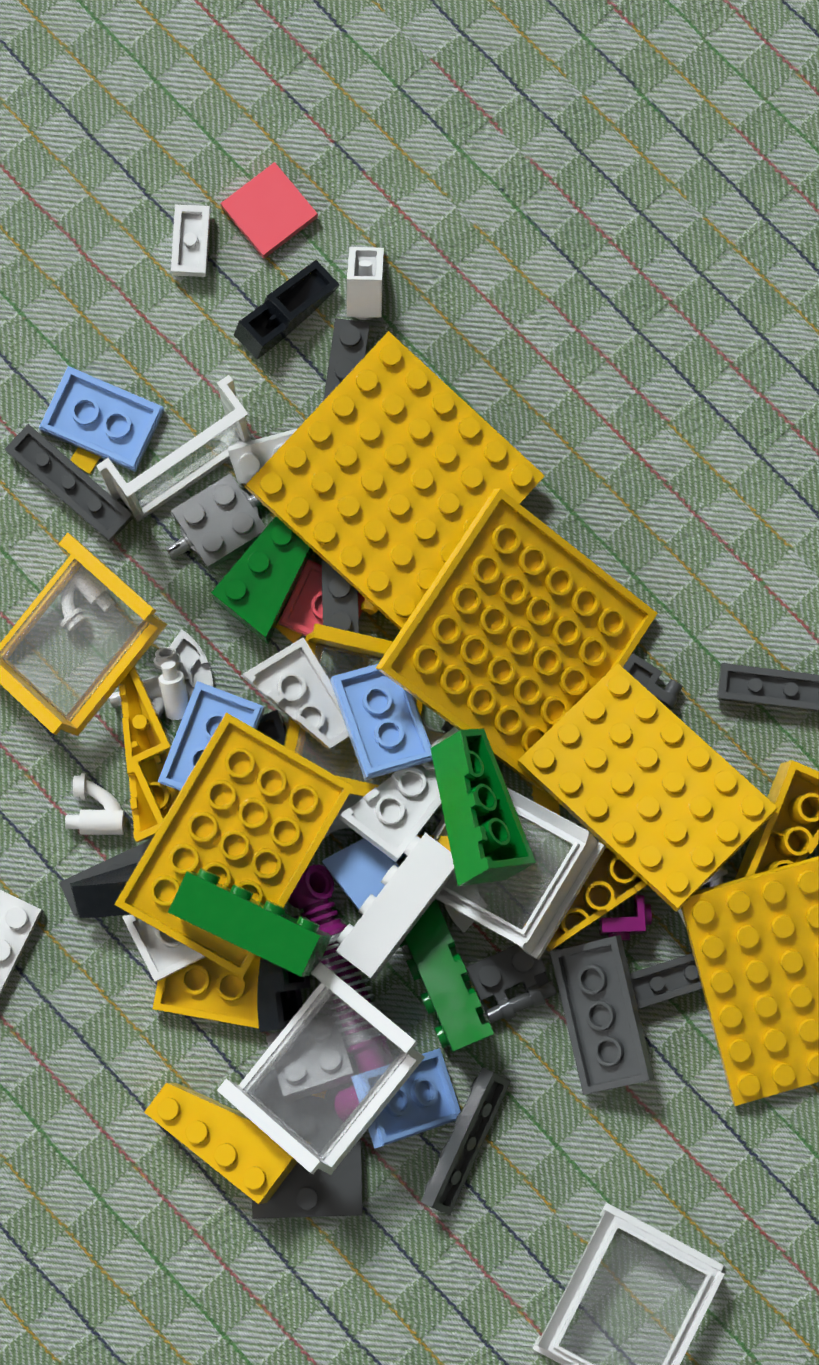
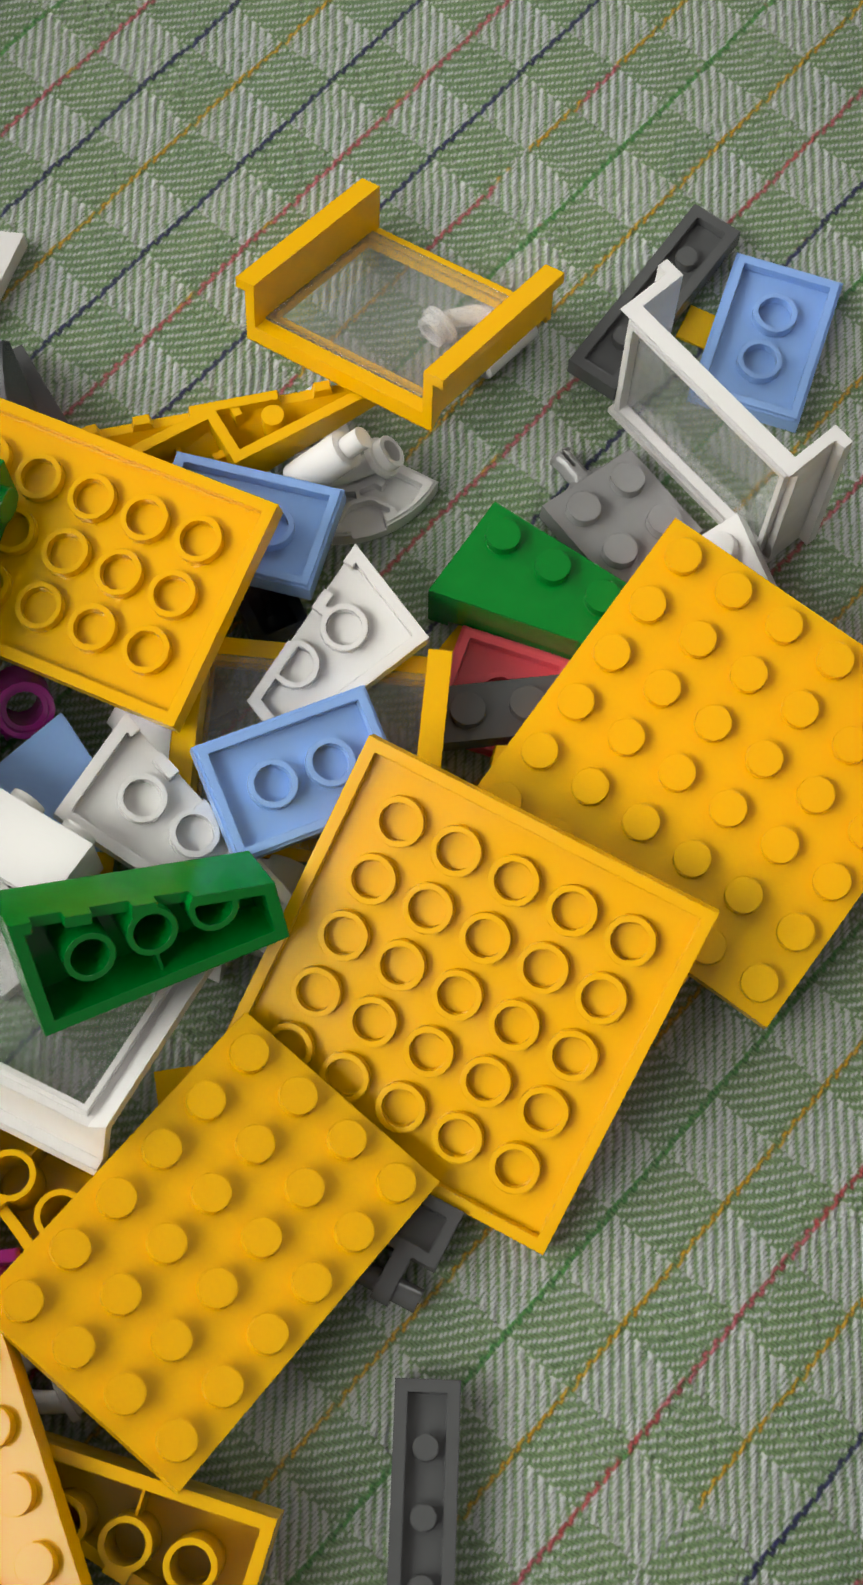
camera: 85 degrees right, 10 degrees down
(96, 822) = (120, 382): white plant -> none

